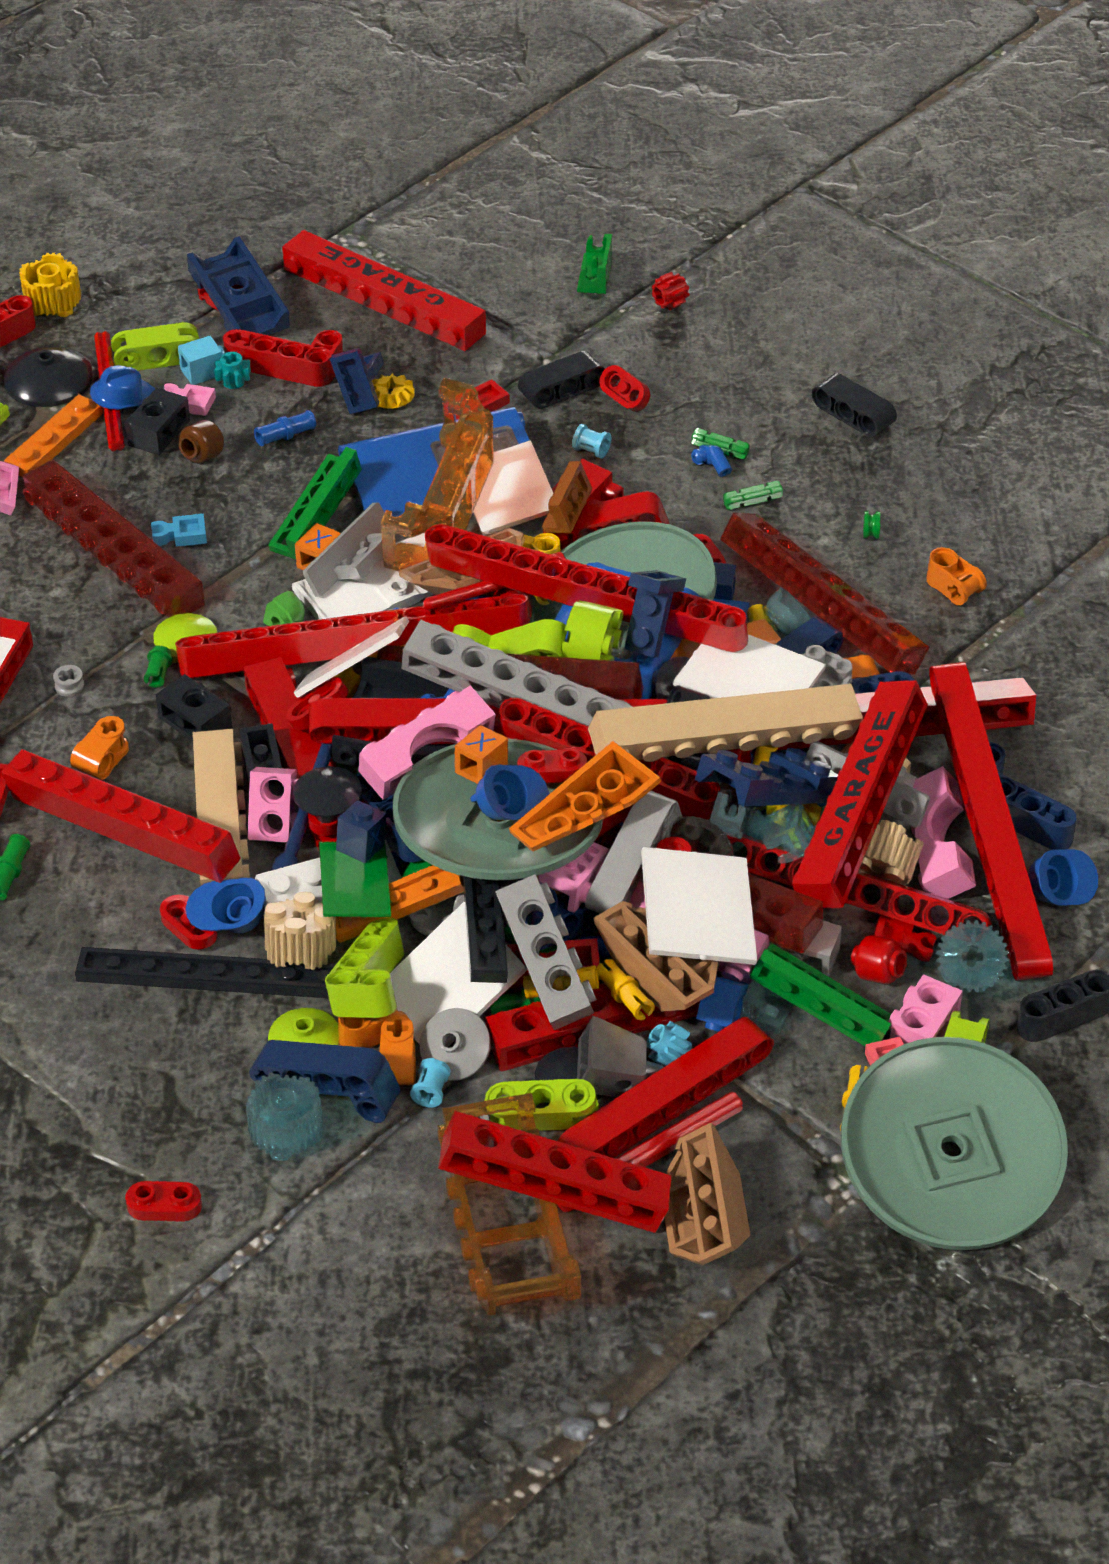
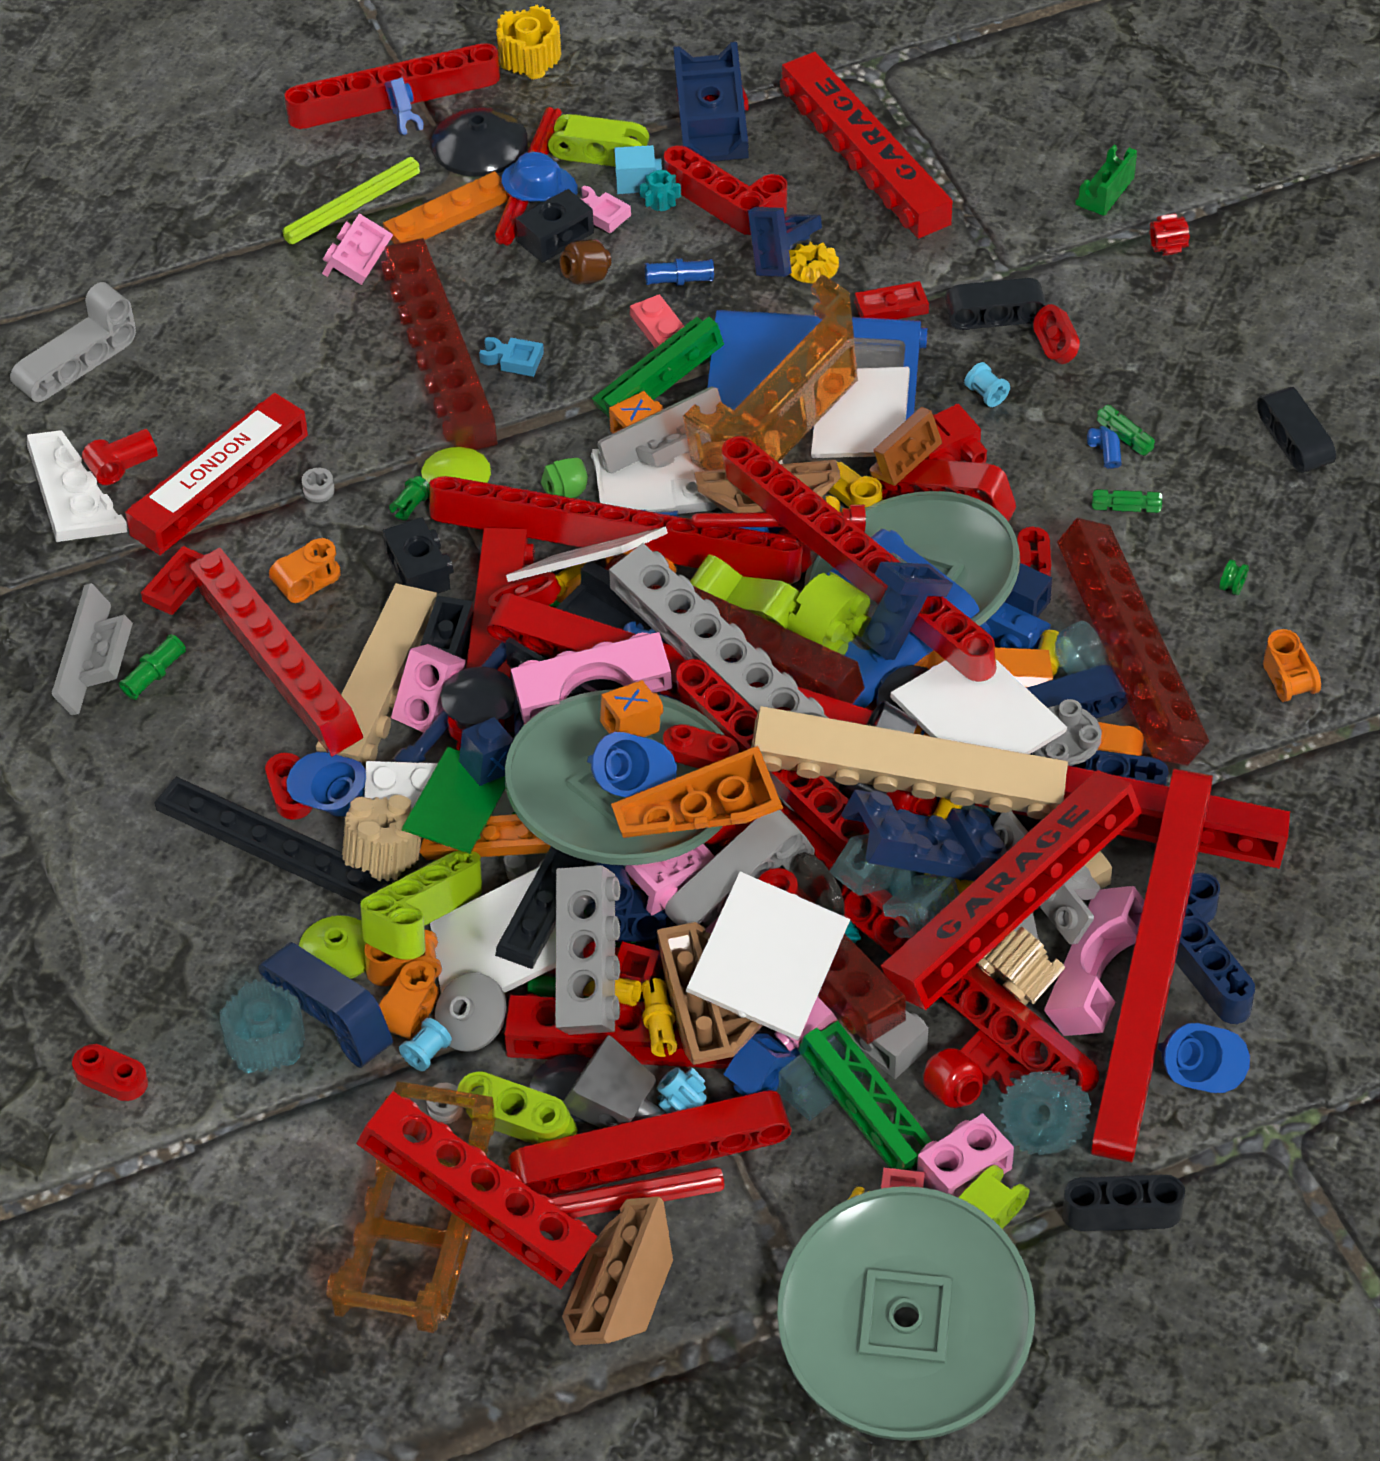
camera: 25 degrees right, 5 degrees up
(287, 471) = (655, 319): none -> coral plate

